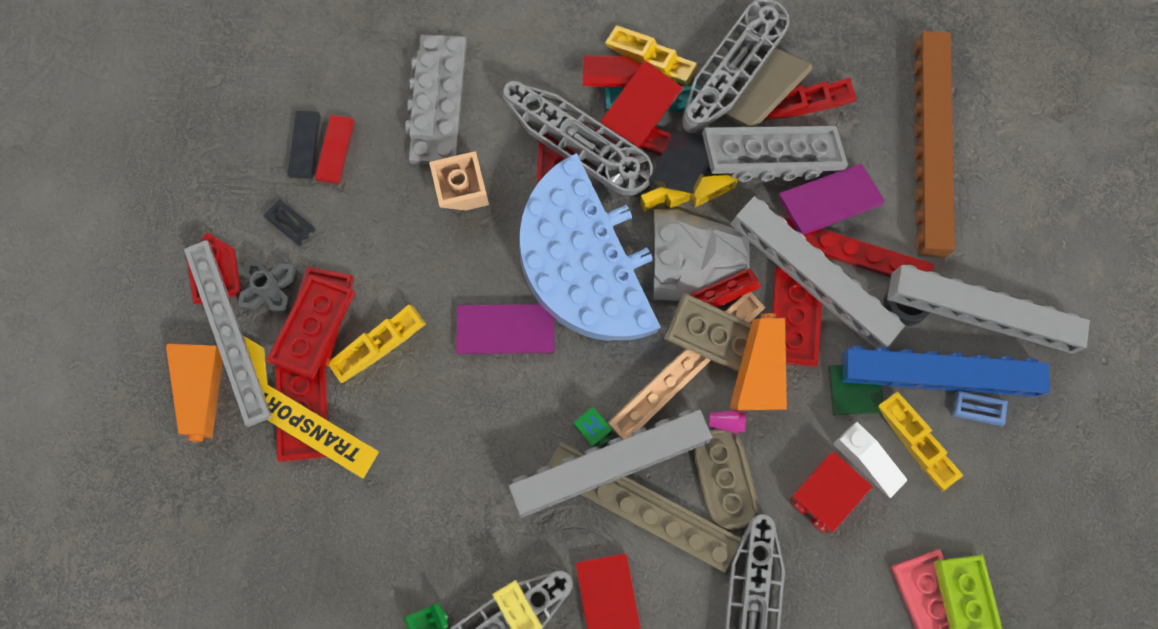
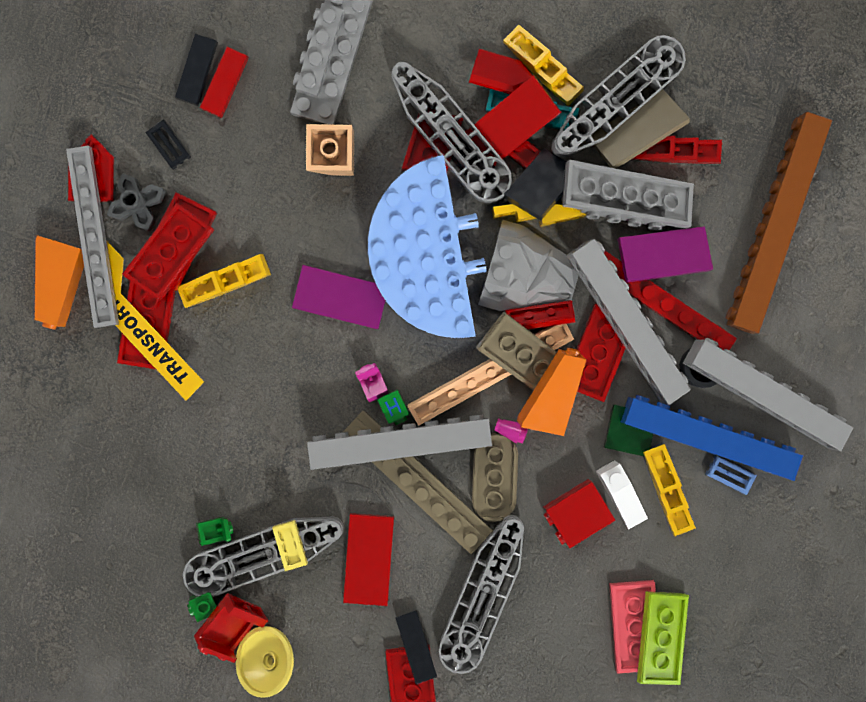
camera: 10 degrees right, 15 degrees up
(562, 407) = (372, 382): none -> dark pink bracket

